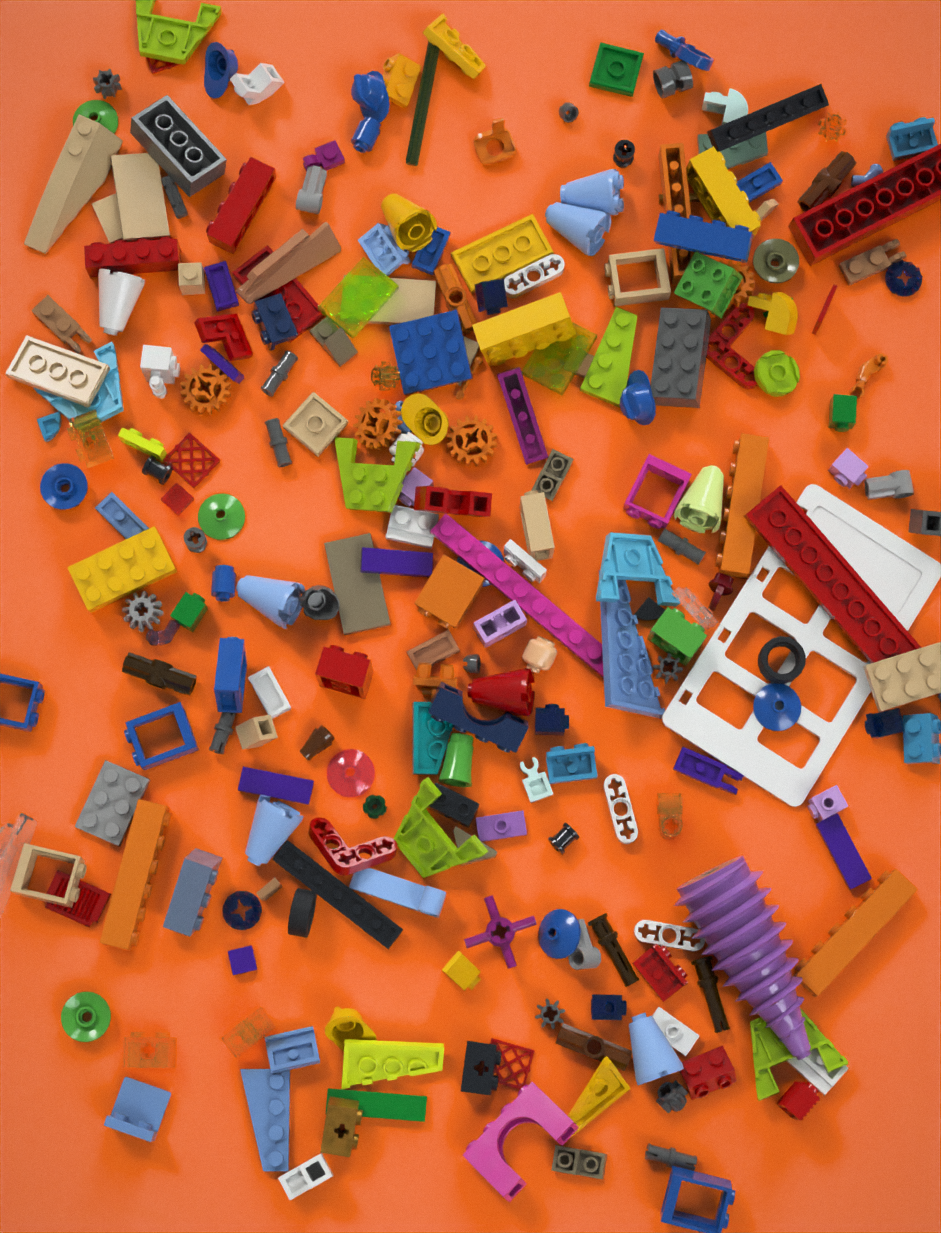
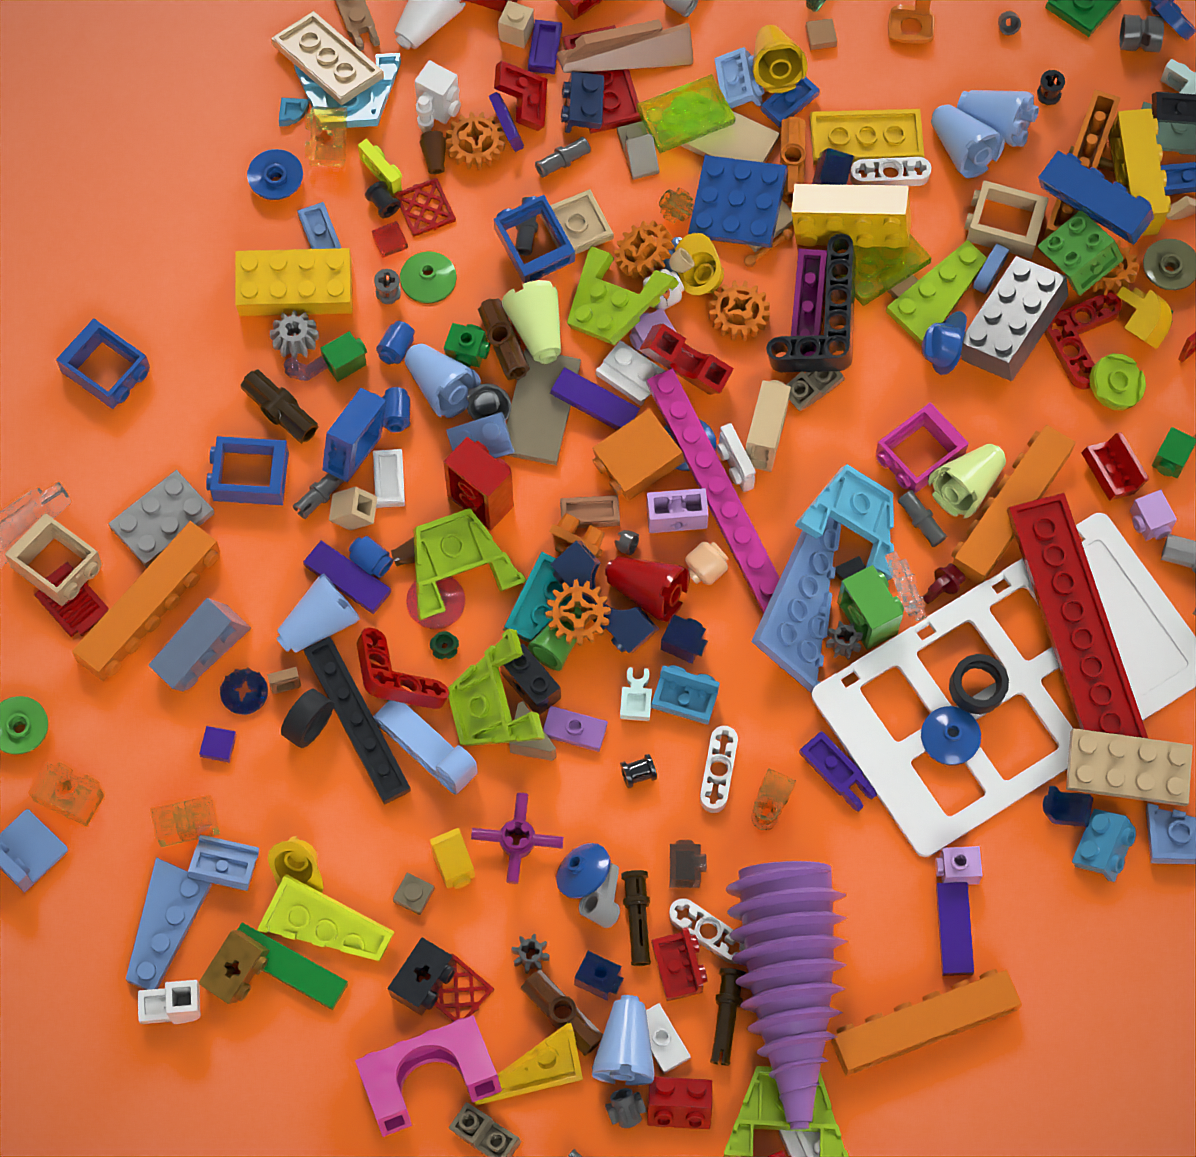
camera: 25 degrees right, 10 degrees down
(177, 412) = (433, 149): none -> reddish brown cone
(252, 636) = (397, 409): none -> blue brick
(272, 558) = (467, 344): none -> green brick
(286, 762) = (370, 556): none -> blue brick
(310, 470) = (546, 263): none -> blue window
(314, 553) = (509, 350): none -> reddish brown piece
(324, 519) = (536, 318): none -> yellowish green cone
(326, 630) = (488, 430): none -> medium blue plate
(346, 731) = (450, 548): none -> lime wing
(412, 422) = (681, 261): none -> tan hinge
(429, 183) = (821, 34): none -> medium nougat tile
(442, 1007) = (413, 893): none -> dark tan plate
(461, 731) = (591, 612): none -> orange gear
(547, 415) = (835, 315): none -> black beam
(630, 893) = (686, 864): none -> clear smoke brick
(644, 322) = (991, 268): none -> medium blue beam
(805, 442) = (1115, 467): none -> red bracket

